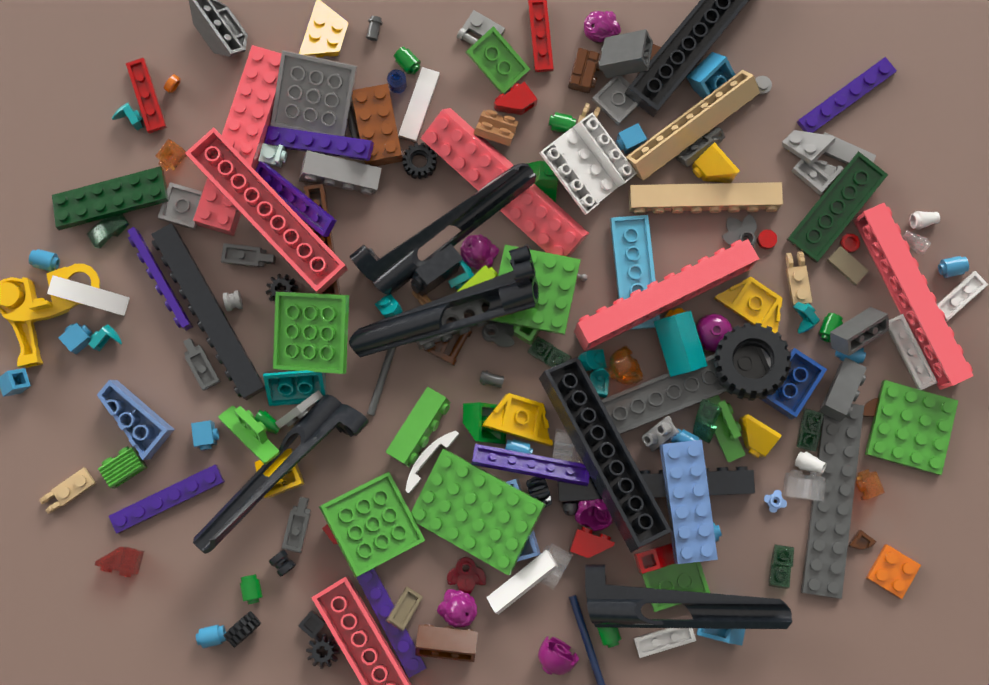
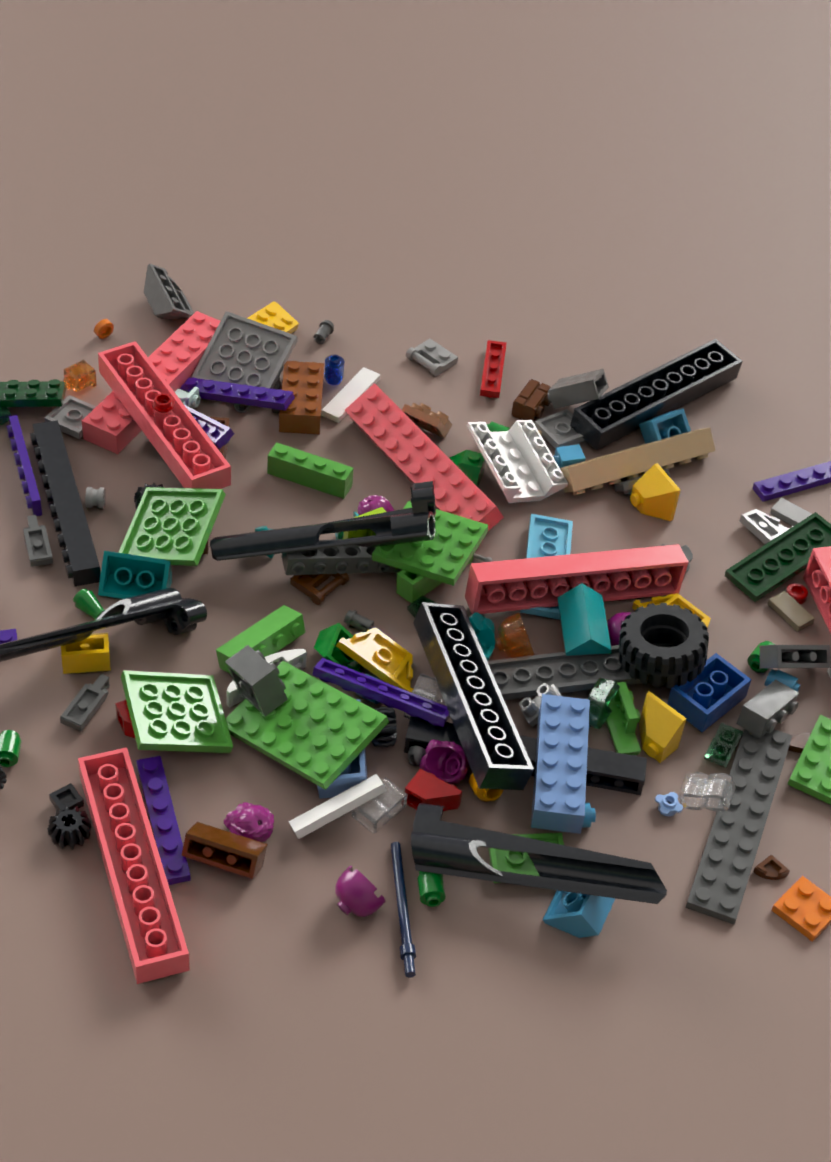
camera: 10 degrees right, 35 degrees down
(133, 116) = (49, 339): teal plate -> none
(146, 95) = (73, 333): red plate -> none
(204, 434) = (15, 598): dark azure brick -> none
(246, 256) = (125, 467): dark grey hinge -> none
(249, 432) = (69, 598): bright green bracket -> none
(264, 202) = (163, 403): none -> red plate
(278, 560) = (55, 732): black wheel -> none
(298, 411) = (129, 588): light grey wing -> none
(339, 173) = (250, 420): light grey wedge -> none
(381, 381) = (236, 595): dark grey bar -> none
(399, 264) = (291, 498): black panel -> none
(402, 215) = (310, 470): none -> bright green brick
(404, 608) = (184, 806): dark tan tile -> none
(407, 60) = (352, 359): green brick -> none
(419, 150) = (337, 425): black tyre -> none
(430, 490) = (257, 680): none -> dark grey brick
(436, 270) = (327, 505): black brick -> none
(466, 578) = (270, 796): dark red plate -> none
(497, 60) = (443, 374): bright green plate -> none
(502, 335) = (379, 583): dark grey plate -> none
(517, 100) = (457, 406): red slope -> none
(604, 23) = (553, 370): magenta hair -> none
(654, 558) = (506, 818): red slope -> none
(663, 640) = (500, 915): white tile -> none
(705, 197) = (641, 520): tan brick -> none
(764, 84) = (721, 452): light grey plate -> none
(767, 239) = (702, 571): red tile -> none
(781, 566) = (667, 866): clear green slope -> none
(798, 280) = (732, 612): tan hinge -> none
(807, 145) = (761, 501): light grey wing -> none
(808, 462) = (713, 766): white cone -> none
(809, 318) = (737, 638): teal plate -> none
(869, 484) = (788, 810): clear orange brick -> none

